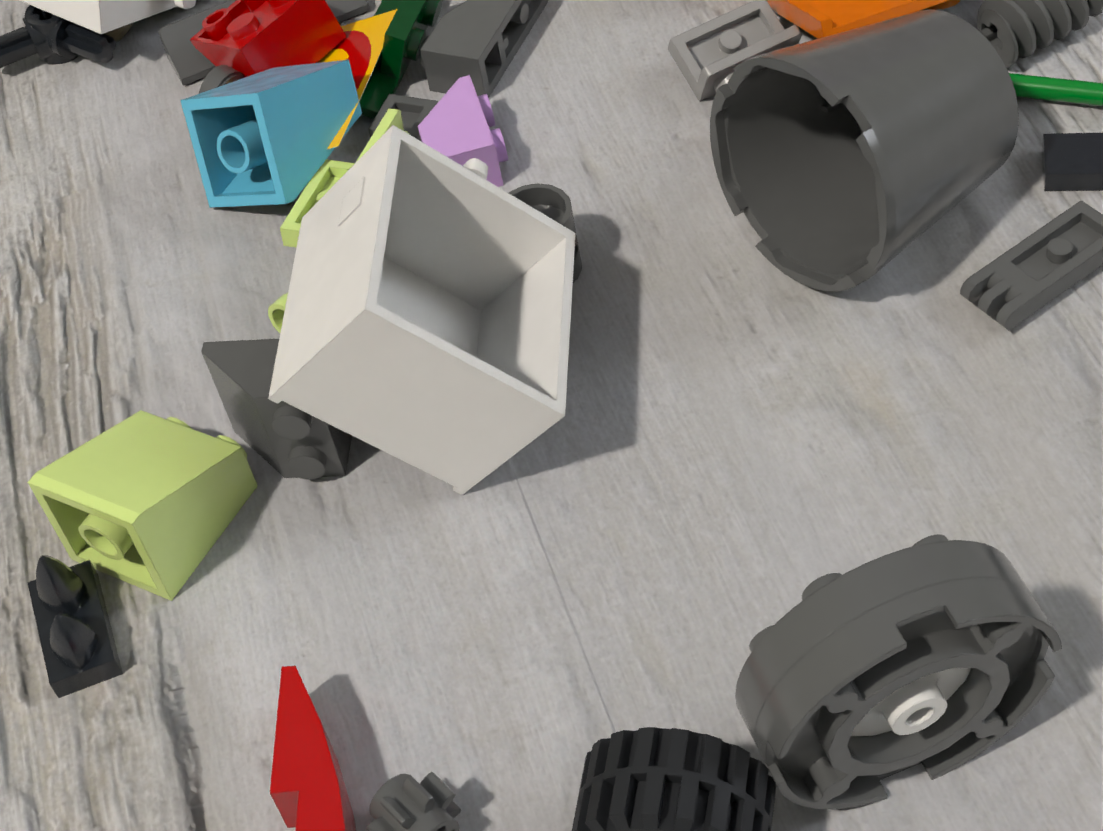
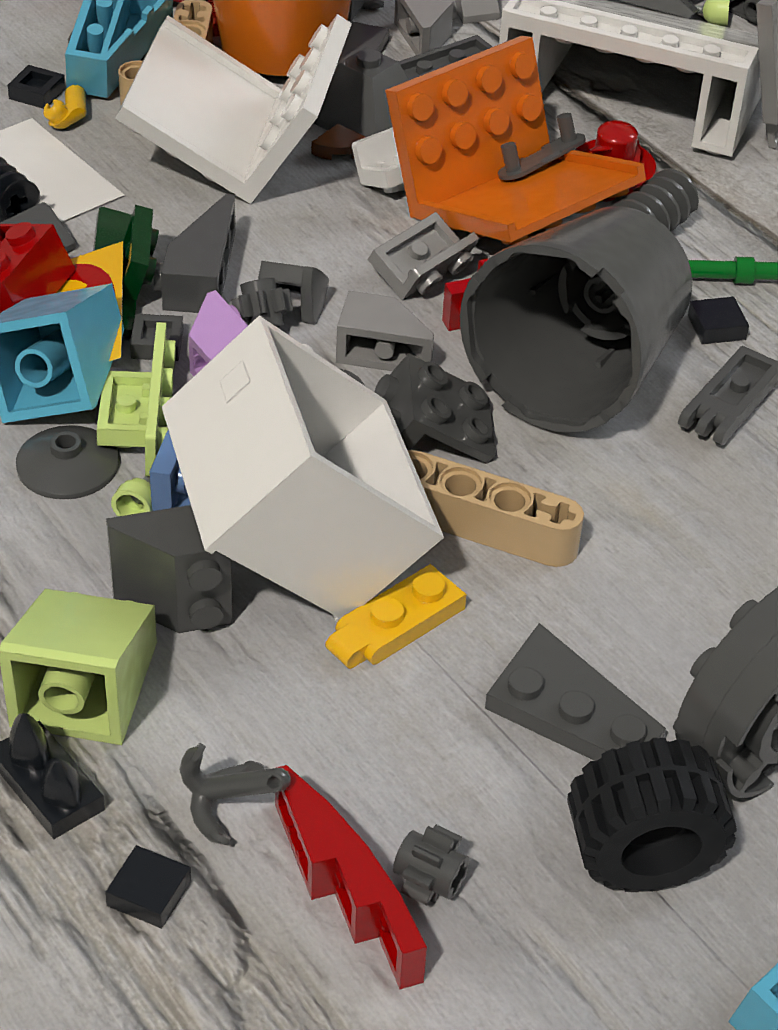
camera: 30 degrees left, 5 degrees down
(120, 775) = (148, 886): none -> black tile
(242, 672) = (225, 783): none -> dark grey piece
(248, 262) = (66, 463): none -> dark grey dish
(519, 498) = (396, 618): none -> yellow hinge
(523, 95) = (263, 299): none -> dark grey gear
(588, 79) = (302, 280): none -> dark grey tile
(641, 144) = (380, 333): none -> light grey slope
(667, 377) = (500, 511): none -> tan beam
(668, 245) = (438, 405): none -> dark grey bracket
(672, 639) = (567, 699): none -> dark grey wing

